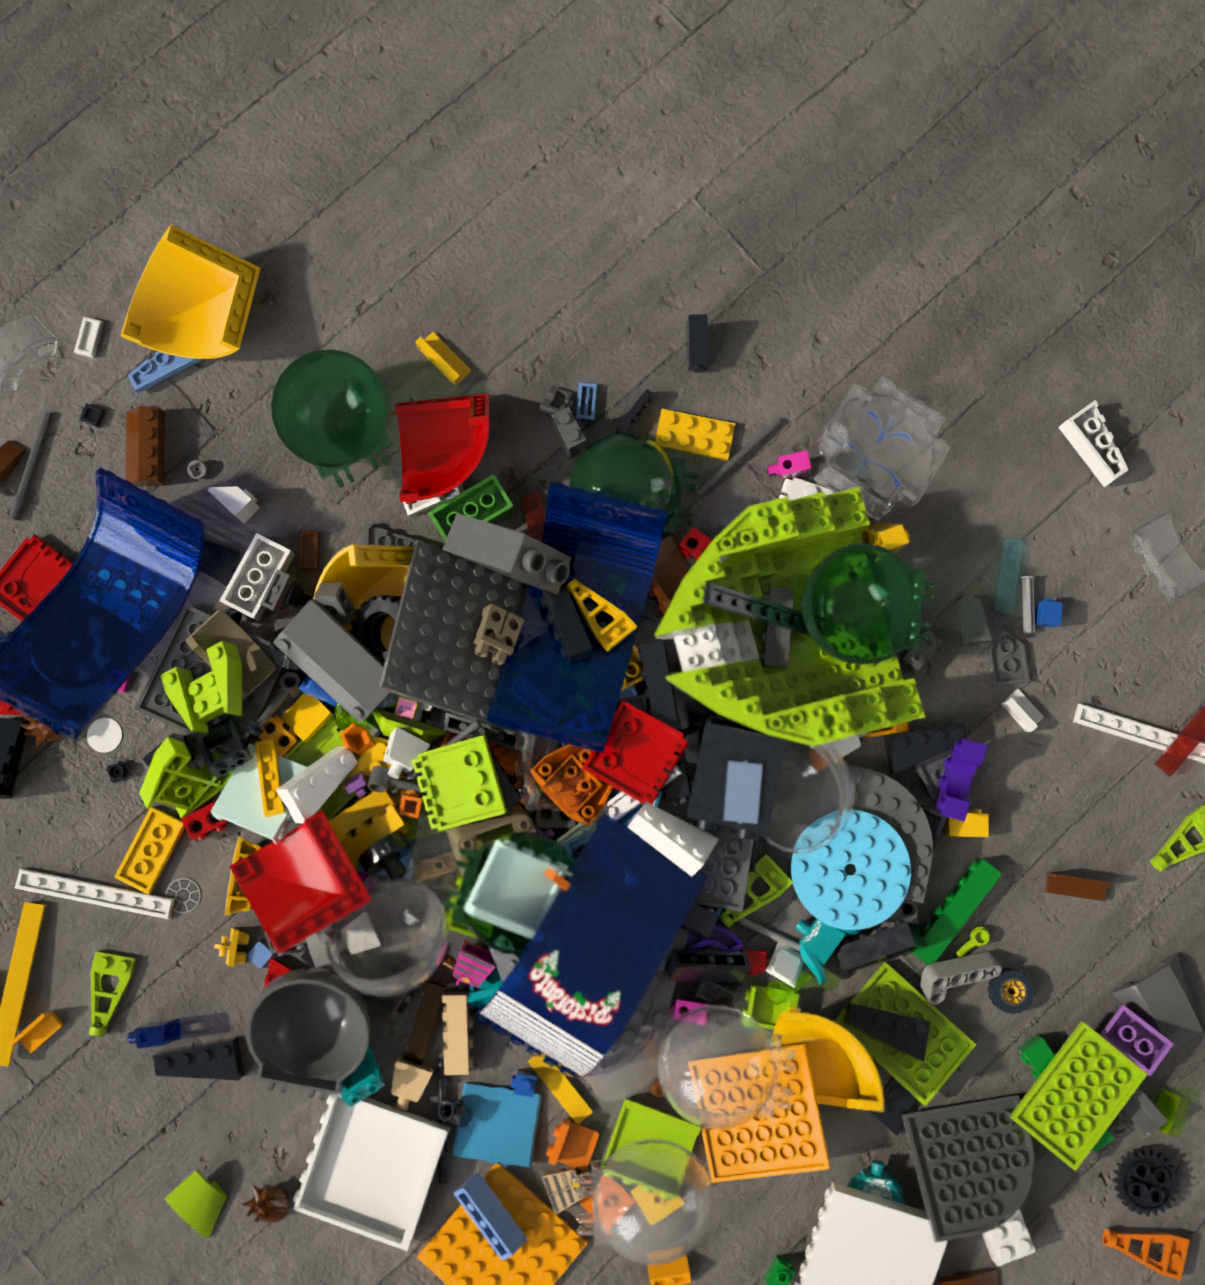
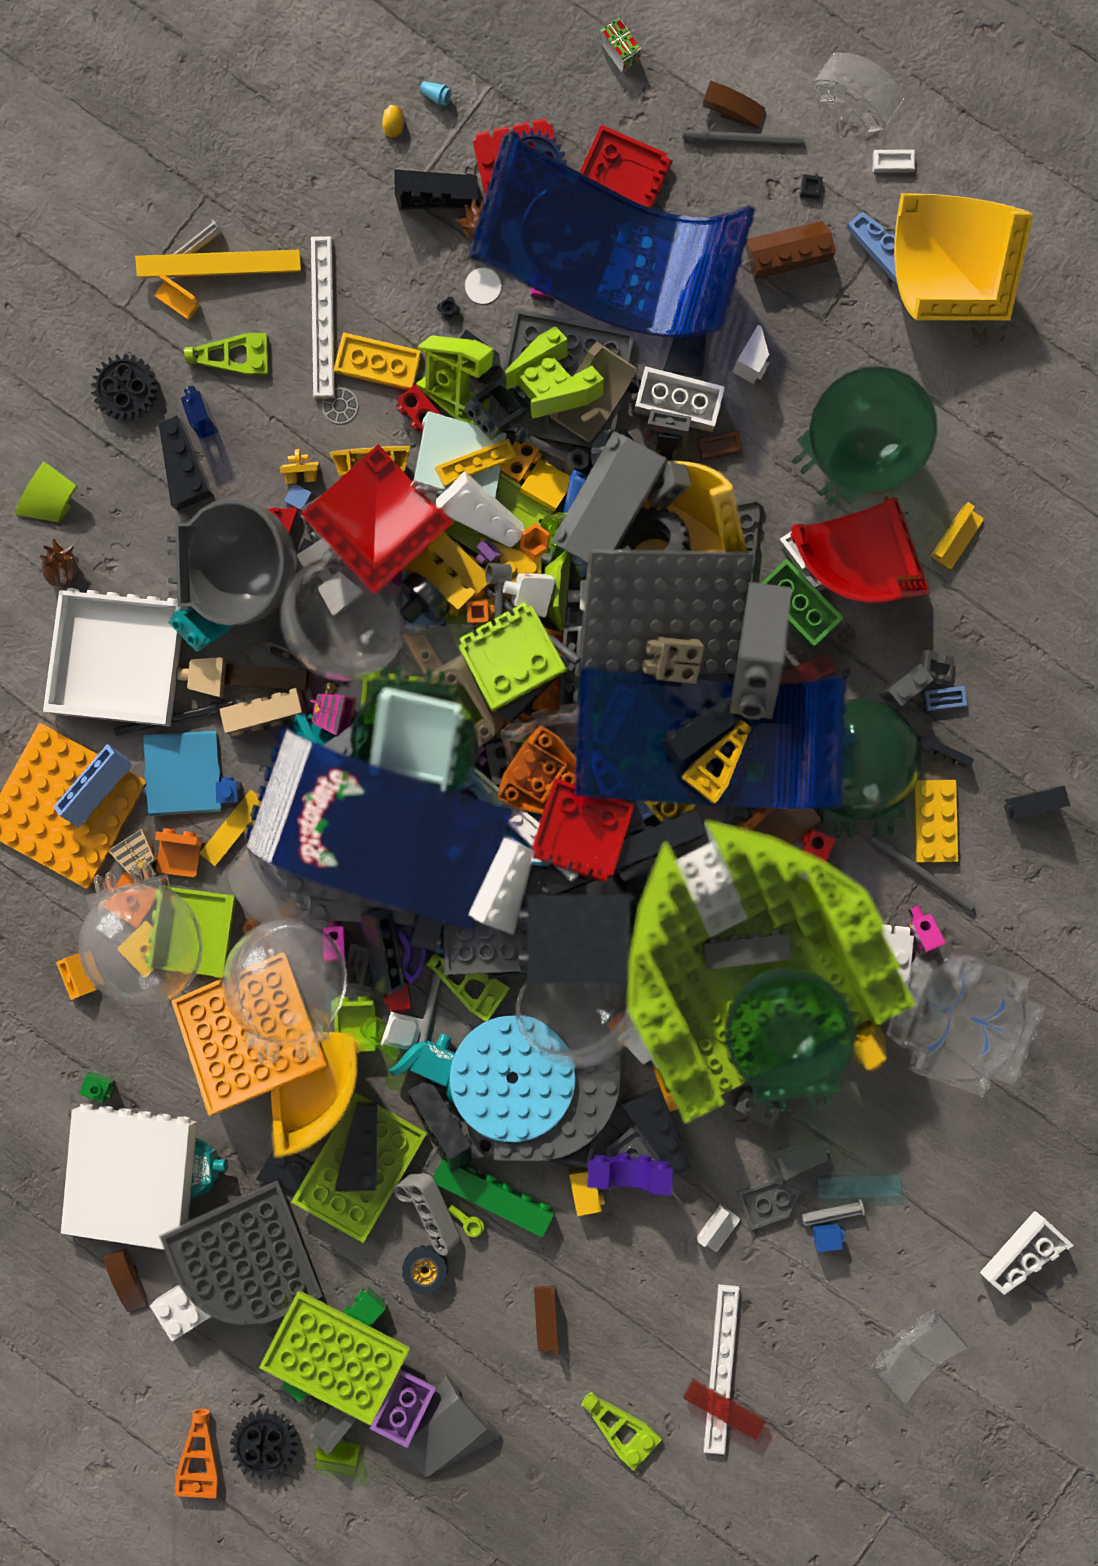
camera: 90 degrees right, 5 degrees up
(121, 1117) = (111, 399): none -> black gear
(197, 469) = (778, 309): light grey tile -> none
(406, 708) = (576, 584): bright pink tile -> none
(455, 1112) = (185, 728): black piece -> none
(557, 879) = (435, 776): orange tile -> none
(743, 792) = (565, 948): sand blue piece -> none
(754, 608) = (759, 918): black tile -> none

